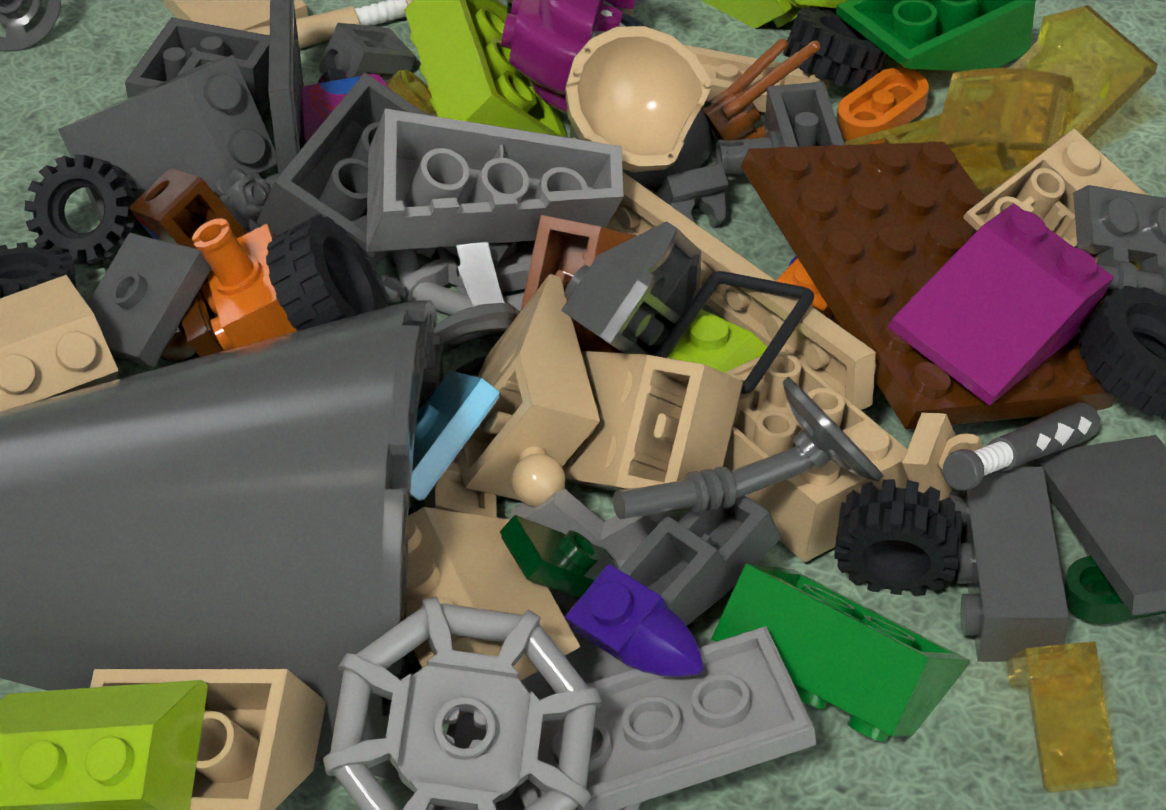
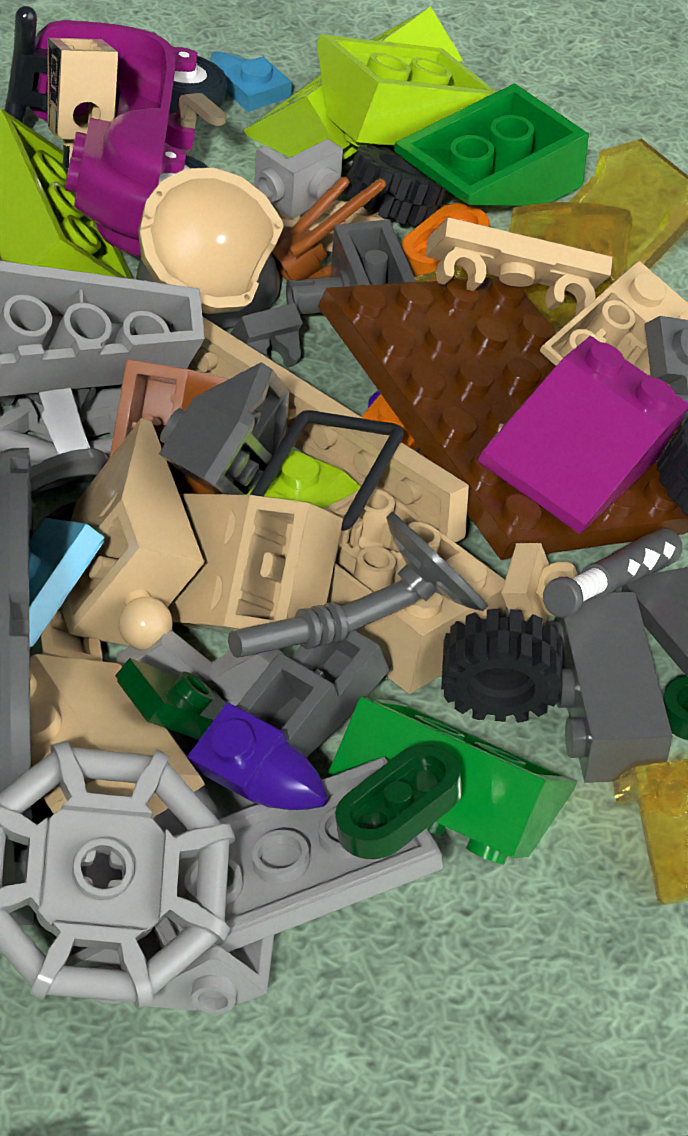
camera: 10 degrees left, 0 degrees up
(737, 42) = (299, 181): none -> light grey bracket
(764, 675) = (388, 805): none -> dark green plate
(948, 126) = (517, 261): none -> tan plate

